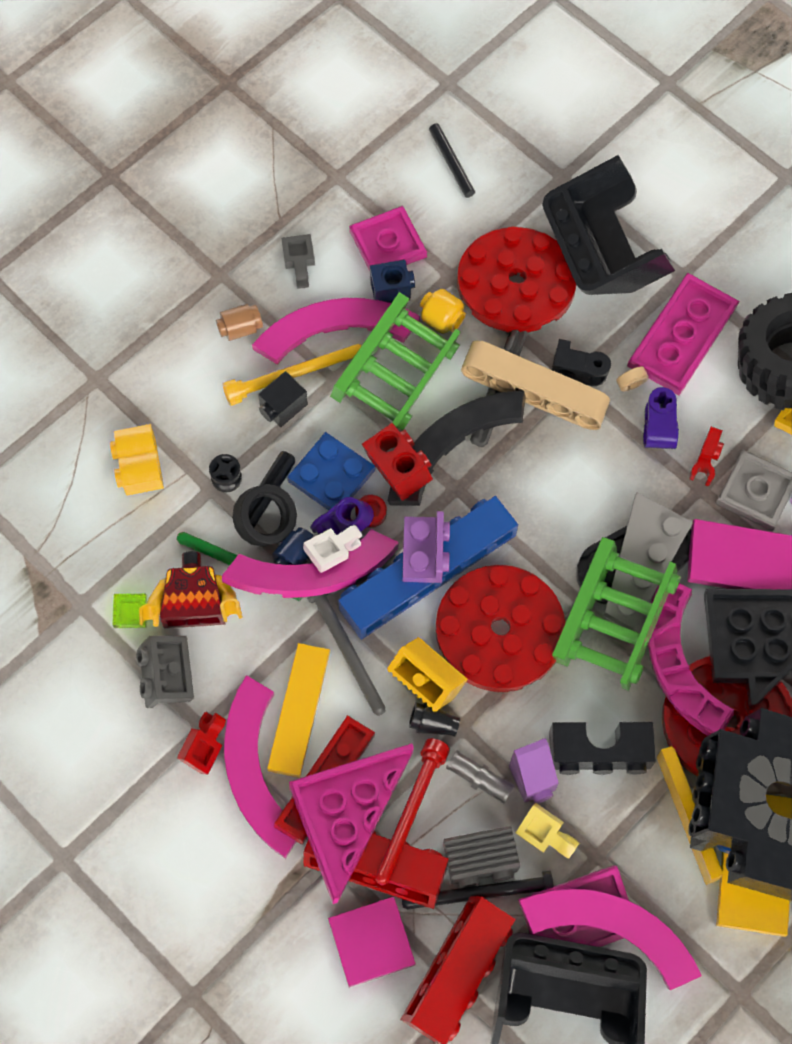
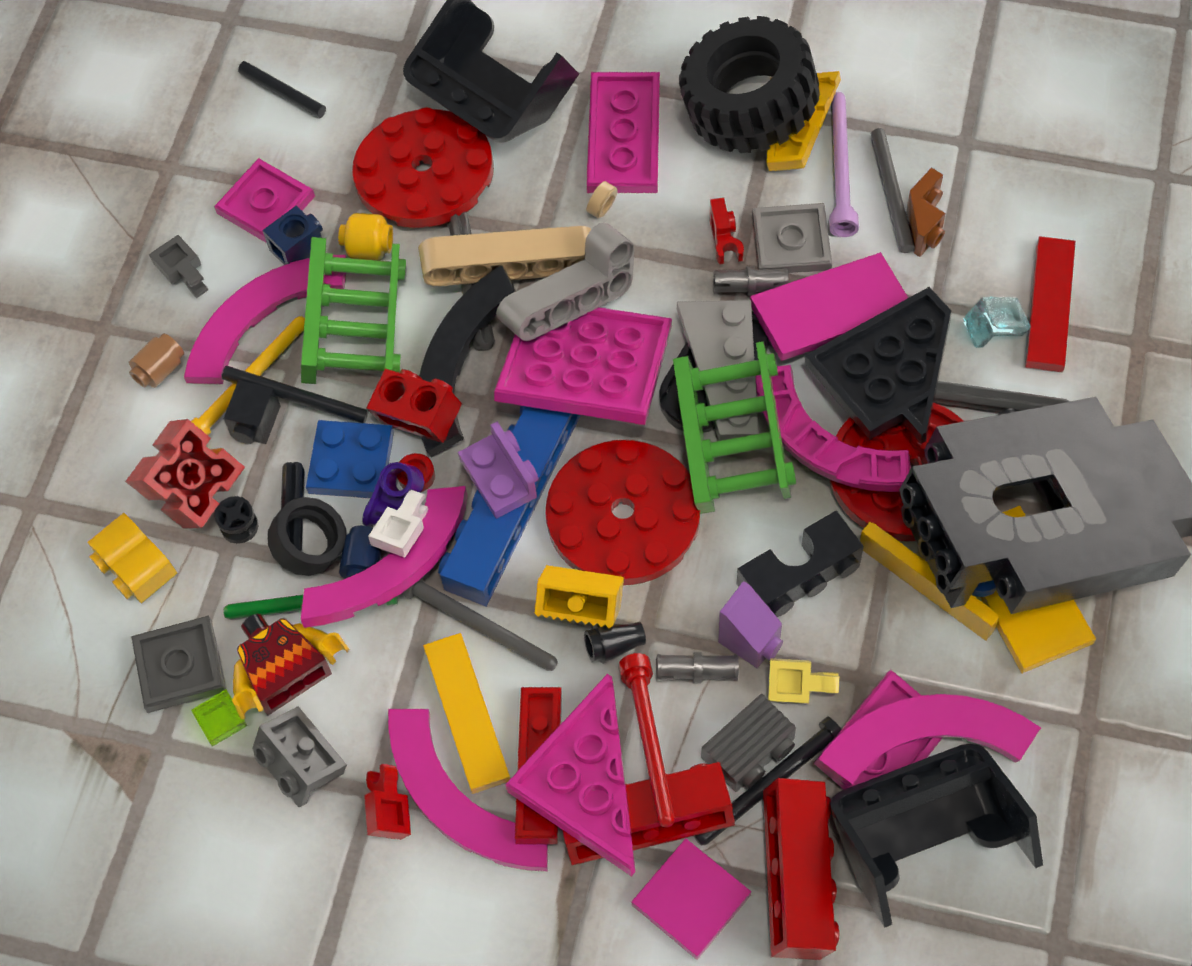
camera: 25 degrees left, 5 degrees down
(124, 555) = (178, 664): none -> dark grey plate
(207, 420) = (185, 474): none -> red brick
(322, 404) = (299, 395): none -> black bar
(540, 498) = (589, 367): none -> dark pink tile
(565, 439) = (574, 290): none -> light grey beam
(581, 366) = (550, 211): black leg -> none
(661, 423) = (655, 222): dark purple piece -> none
(704, 505) = (749, 280): none -> flat silver pin

